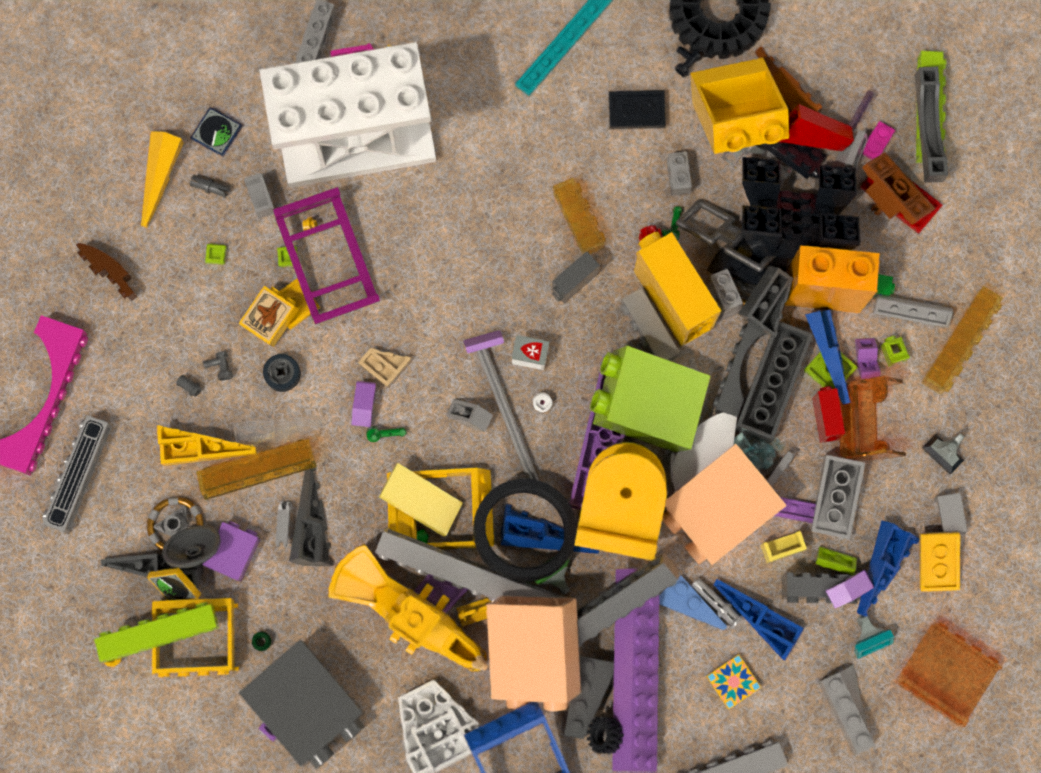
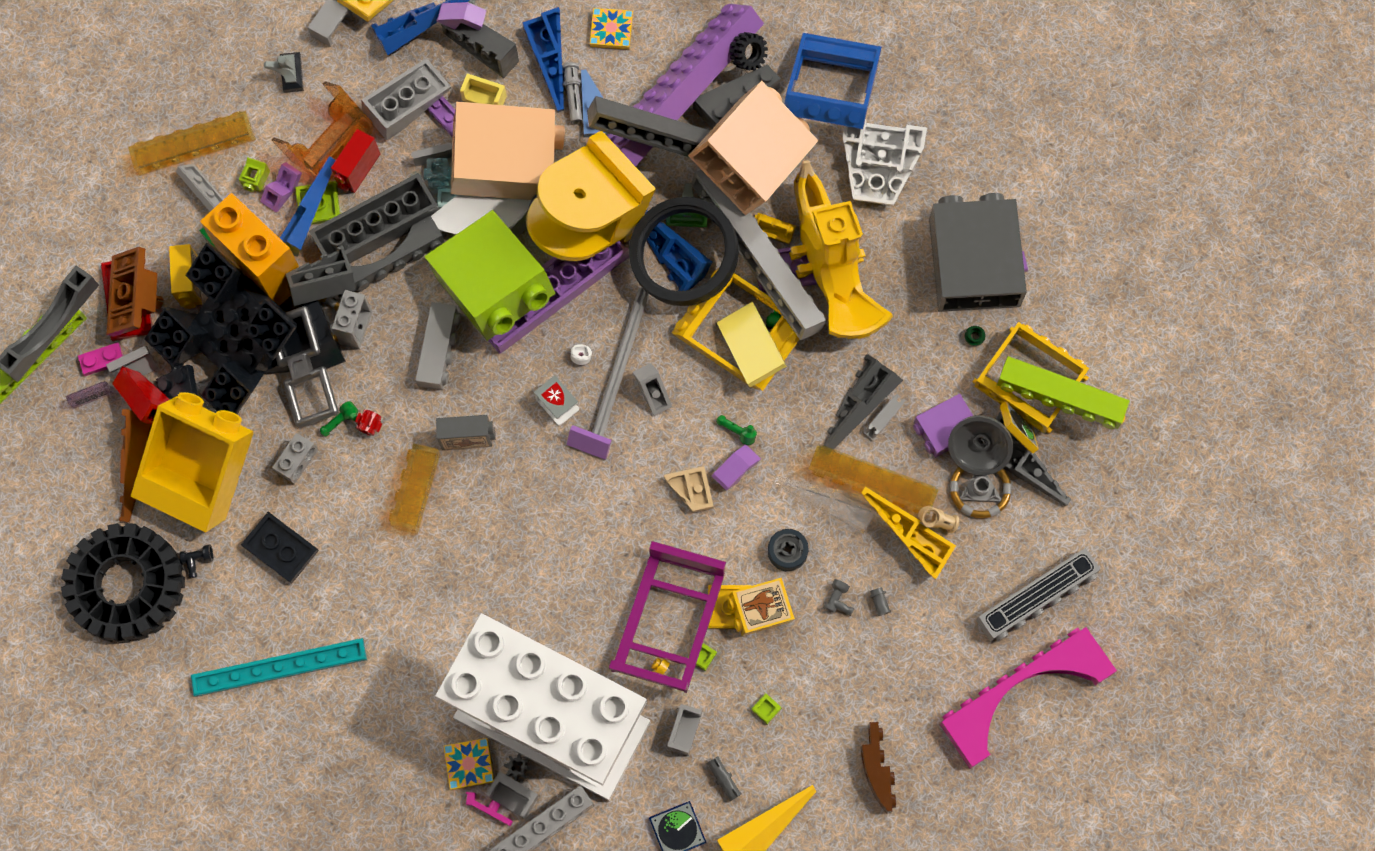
camera: 140 degrees left, 5 degrees down
(186, 474) = (938, 519): none -> tan connector
(675, 287) = (389, 347): yellow brick -> none
(835, 560) = (451, 54): lime plate -> none
(874, 236) = (183, 289): none -> yellow brick

